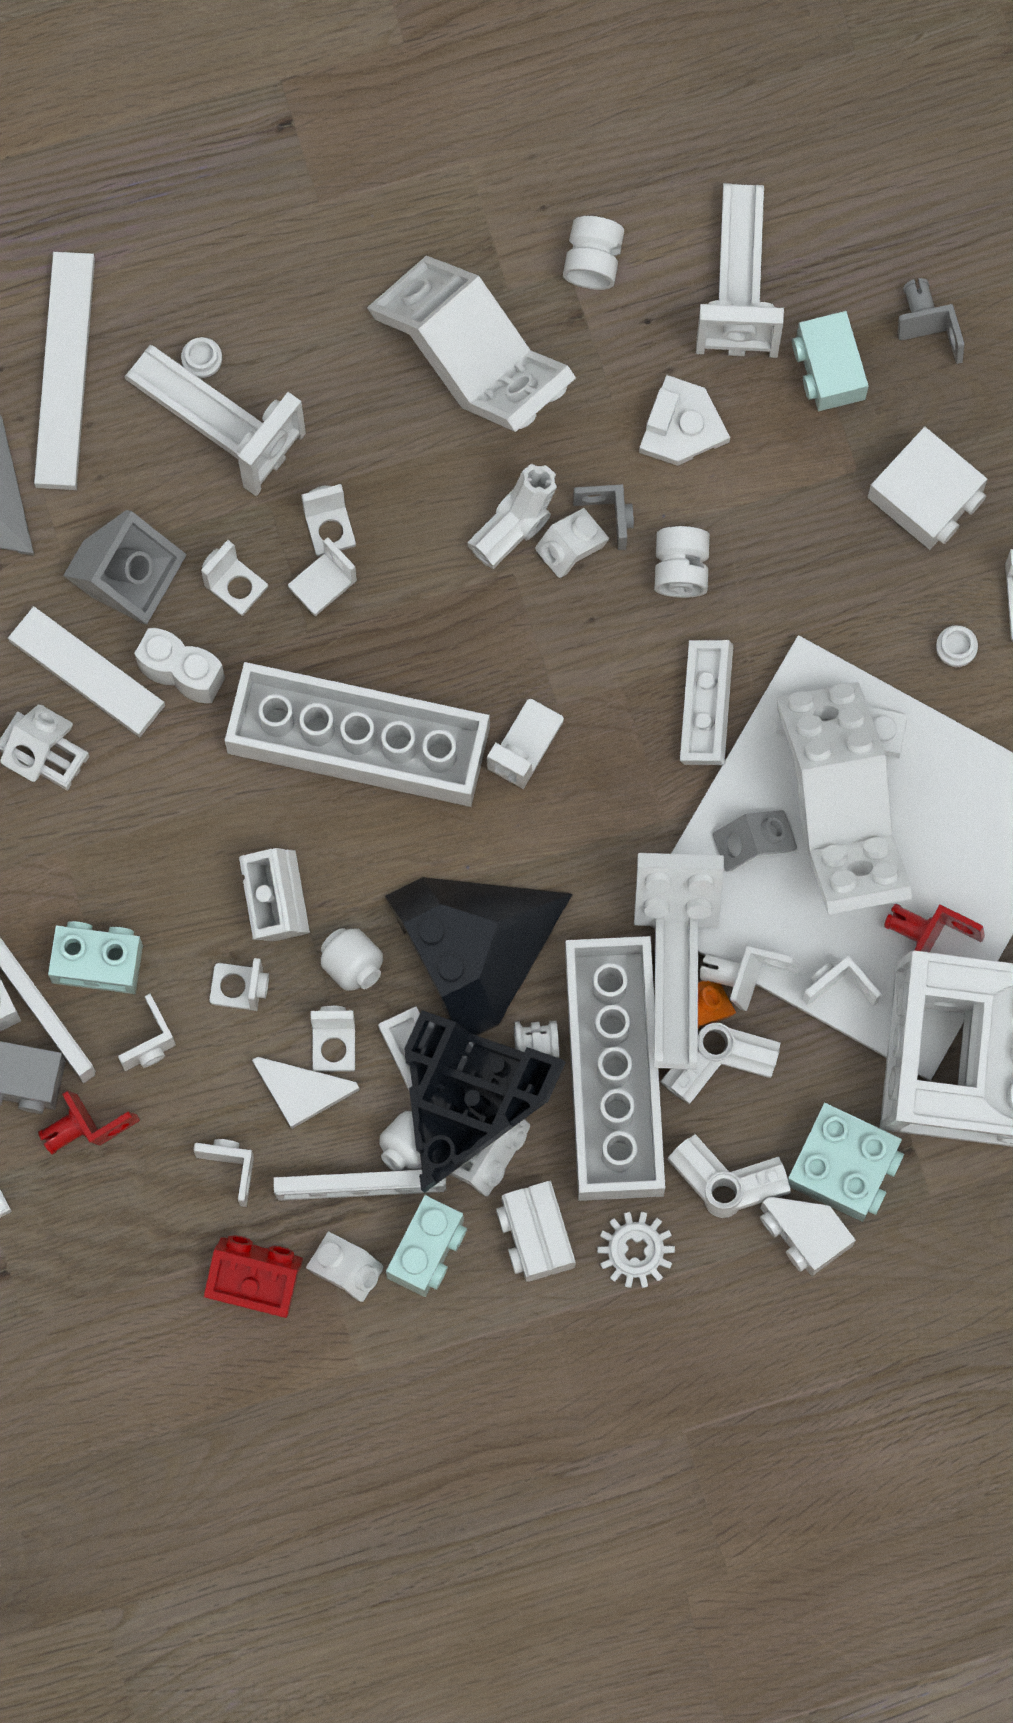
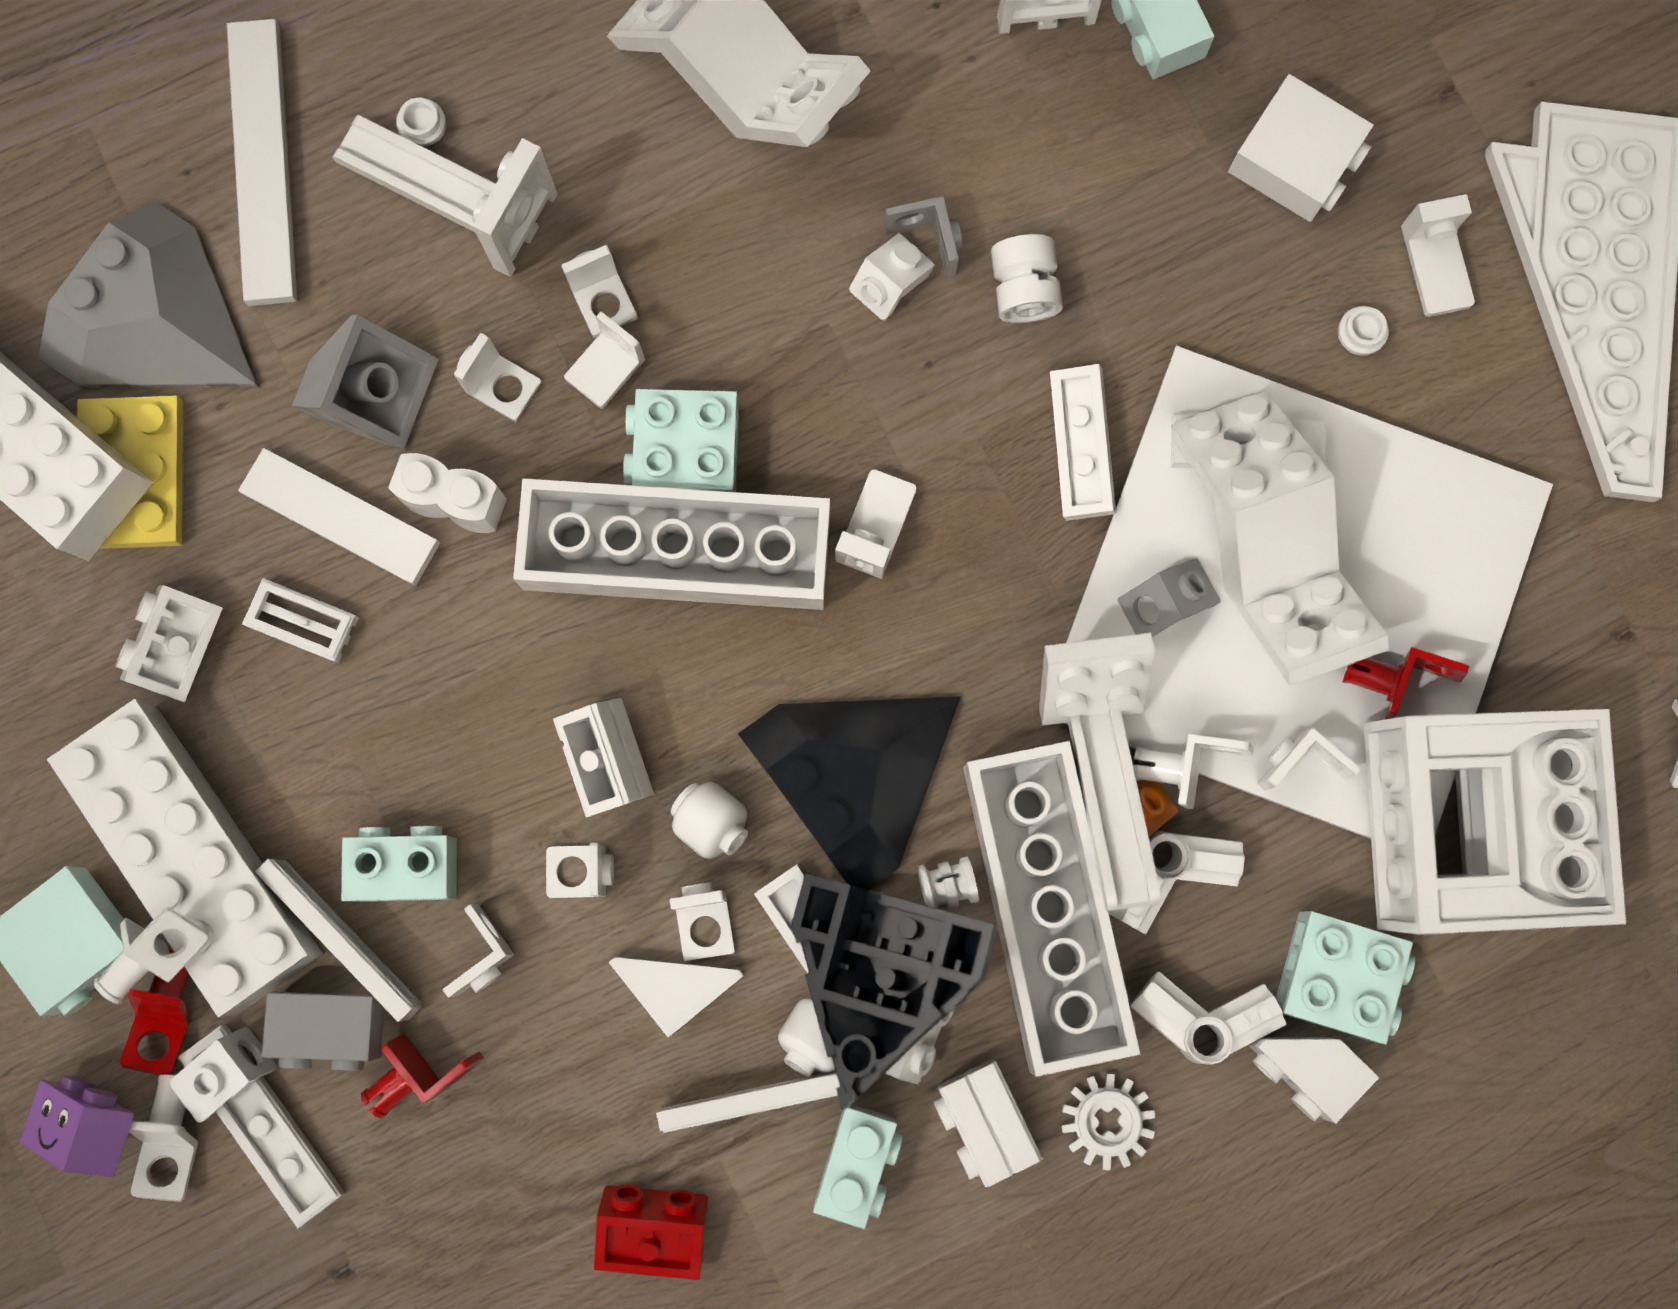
camera: 10 degrees left, 5 degrees up
(39, 732) = (288, 601): white bracket -> none
(229, 1151) = (598, 1082): white bracket -> none
(345, 1266) = (760, 1202): white bracket -> none
(378, 650) = (683, 440): none -> light aqua brick
(516, 517) = (823, 252): white piece -> none
(682, 423) = (998, 117): white plate -> none

